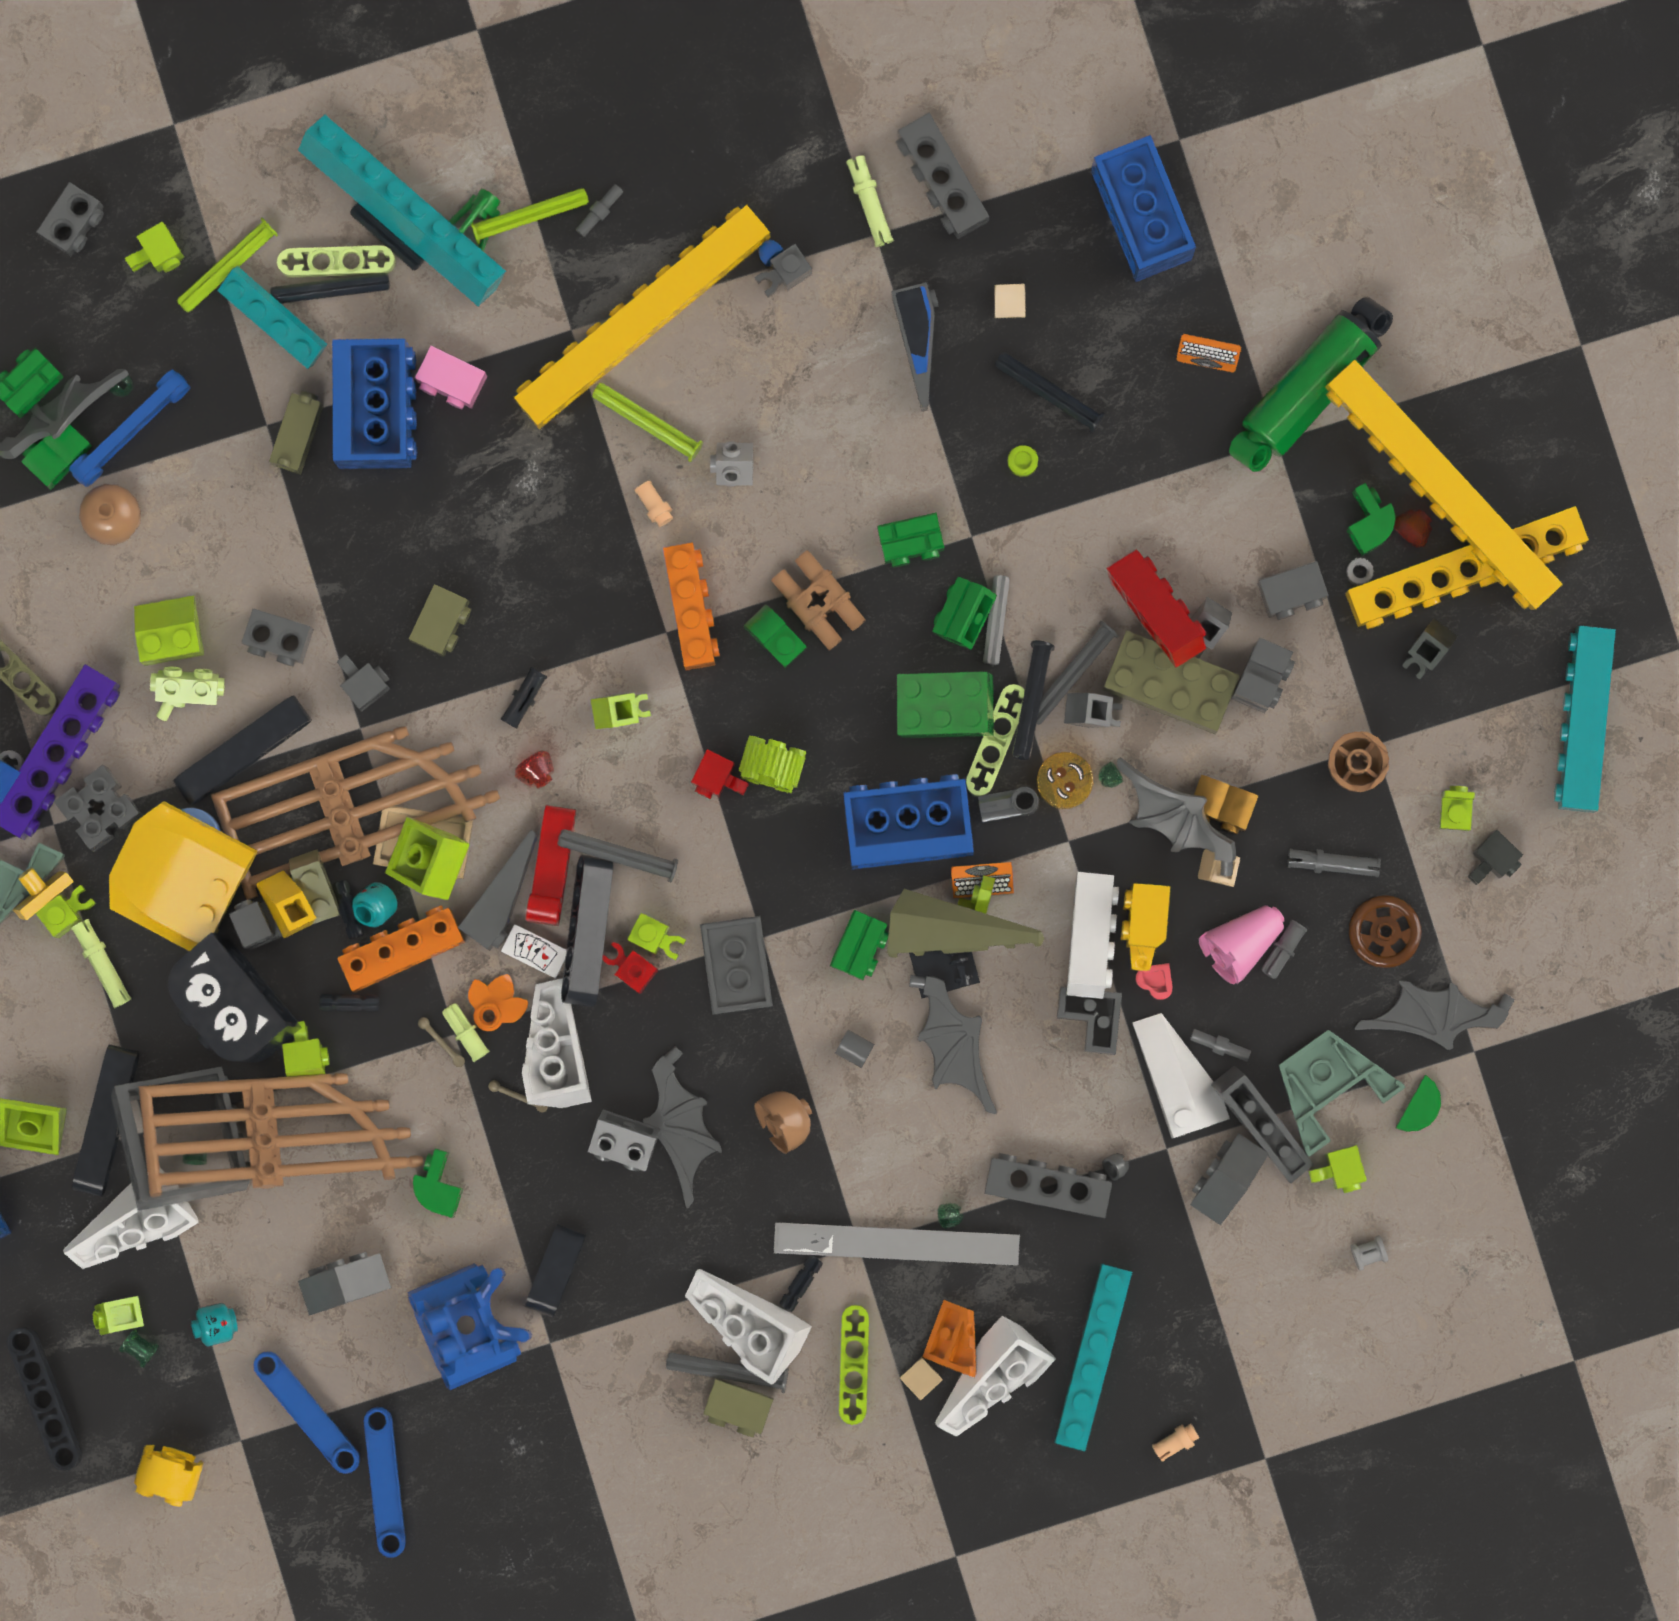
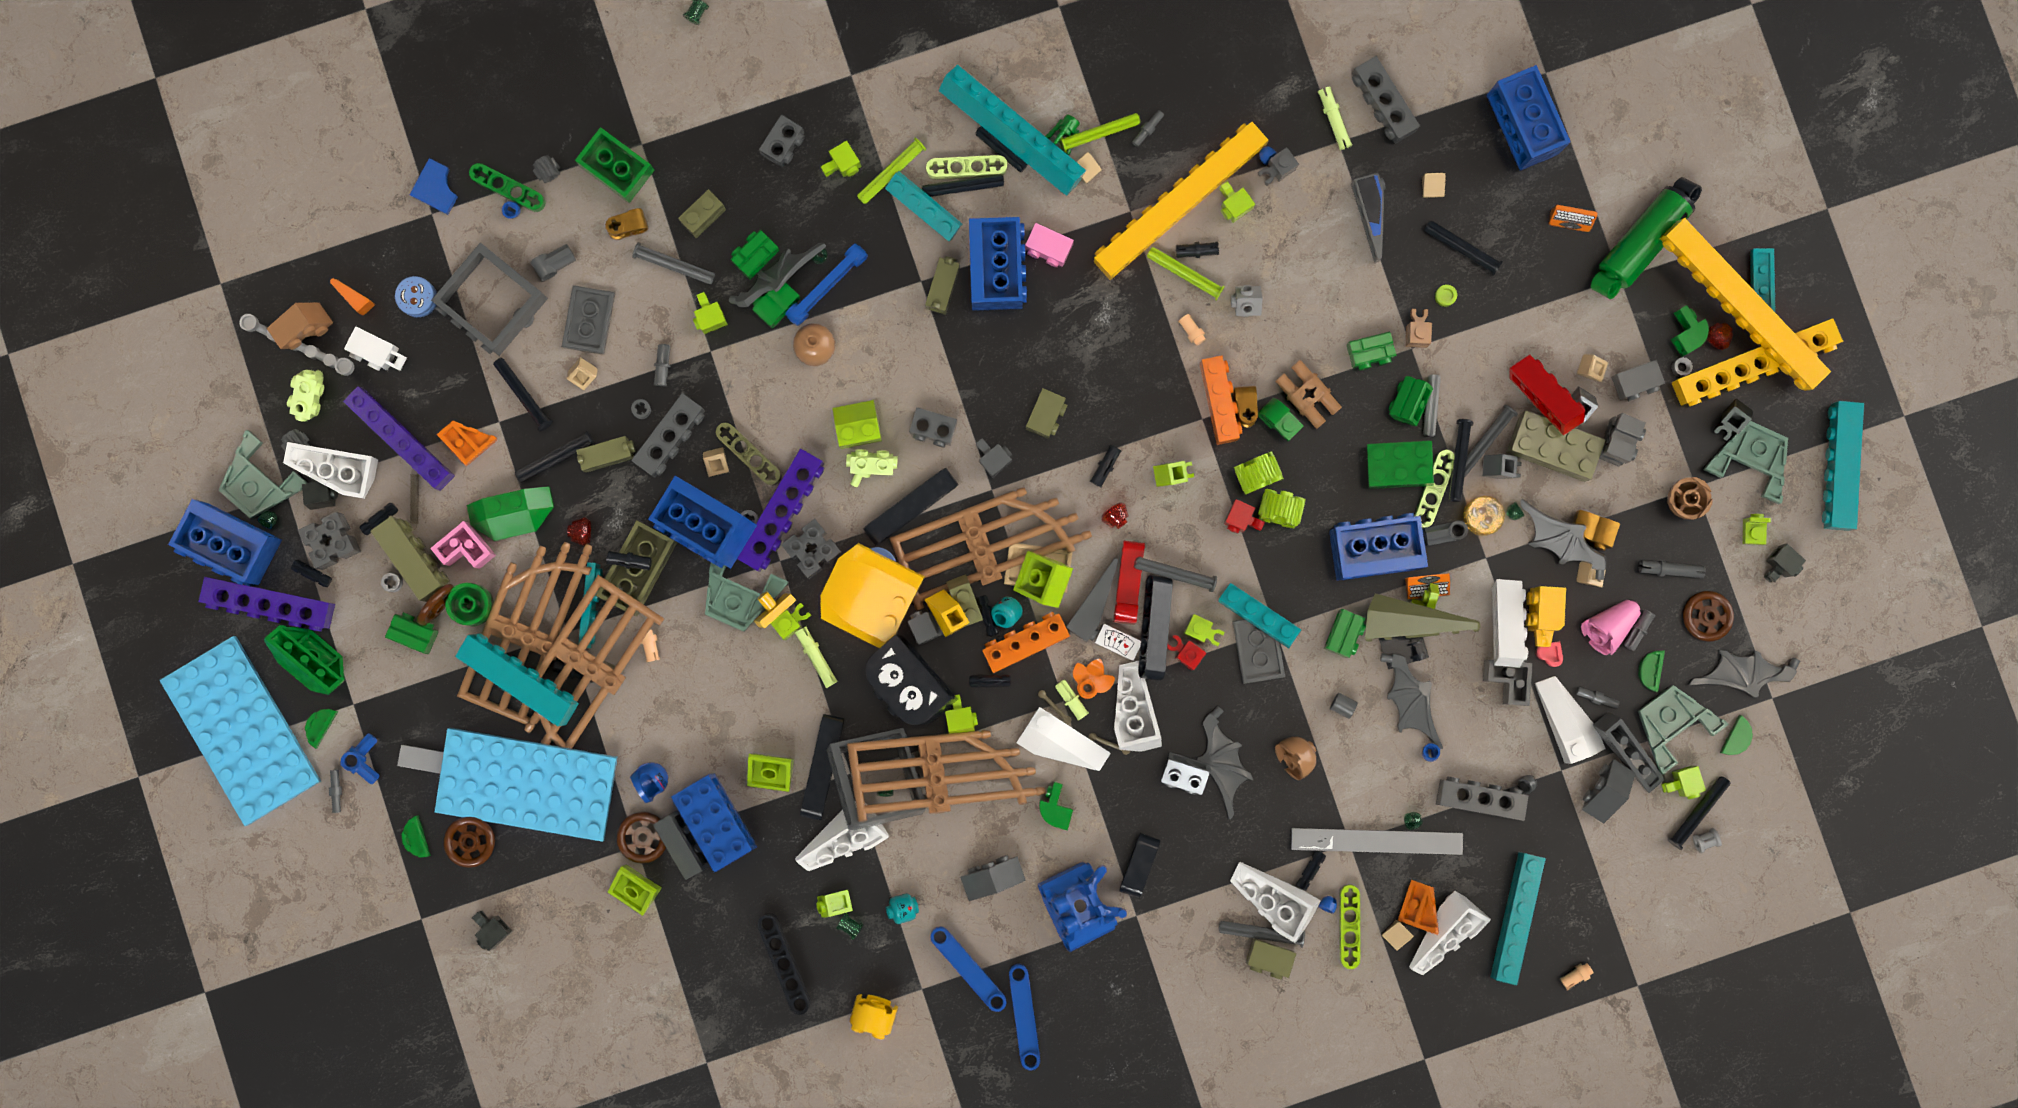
camera: 10 degrees left, 0 degrees up
(440, 1089) = (1058, 741): none -> white wedge
(514, 265) = (1090, 165): none -> tan slope
(665, 388) = (1197, 249): none -> black pin
(723, 323) = (1236, 203): none -> lime brick
(728, 609) = (1246, 402): none -> pearl gold piece
(737, 917) = (1259, 615): none -> teal plate
(740, 712) = (1258, 472): none -> lime brick
(824, 1332) = (1328, 904): none -> blue hinge
(979, 512) = (1418, 332): none -> medium nougat brick
(984, 1118) = (1435, 752): none -> blue hinge
(1231, 569) = (1592, 367): none -> tan slope
(1299, 1007) = (1650, 670): none -> green tile
(1361, 1212) = (1699, 812): none -> black axle
(1465, 694) = (1759, 450): none -> sand green wing
(1481, 448) = (1763, 274): none -> teal plate

